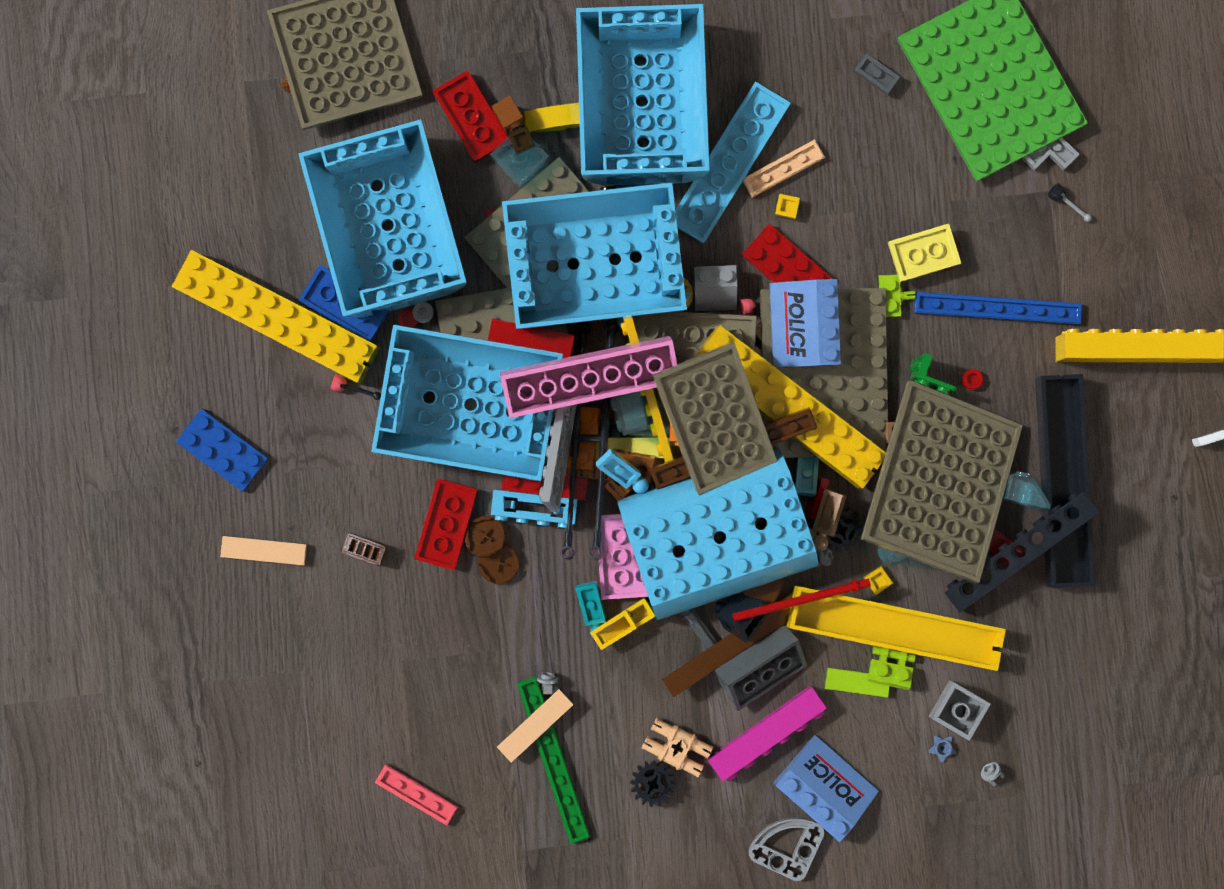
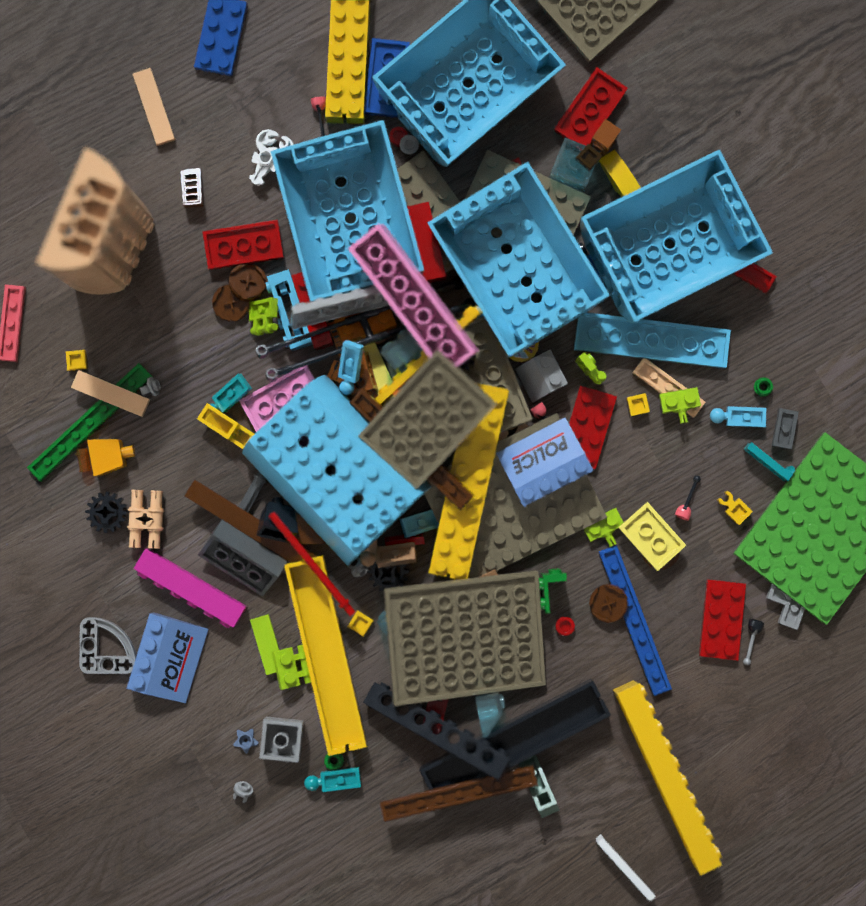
camera: 60 degrees right, 0 degrees up
(371, 461) = (264, 158): none -> white animal
(384, 653) = (104, 236): none -> light nougat slope
(484, 745) = (76, 360): none -> yellow tile
(523, 532) = (262, 314): none -> lime plate
(589, 782) = (83, 460): none -> clear orange pin
(596, 755) = (108, 455): none -> light orange torso
(716, 30) = (756, 277): none -> red tile
(727, 237) = (588, 366): none -> lime plate
(804, 164) = (680, 402): none -> lime plate
(825, 70) = (769, 386): none -> green plate
(845, 112) = (740, 416): none -> medium azure plate
(913, 210) = (683, 511): none -> hinge
(920, 96) = (769, 463): none -> teal hinge
(934, 158) = (736, 510): none -> yellow plate
(969, 326) = (608, 603): none -> reddish brown tile
(1008, 669) = (330, 765): none -> green plate
(1022, 676) = (334, 780): none -> teal plate
(1036, 222) = (722, 619): none -> red plate
(1092, 560) = (457, 794): none -> reddish brown tile
(1120, 477) = (542, 793): none -> sand green slope

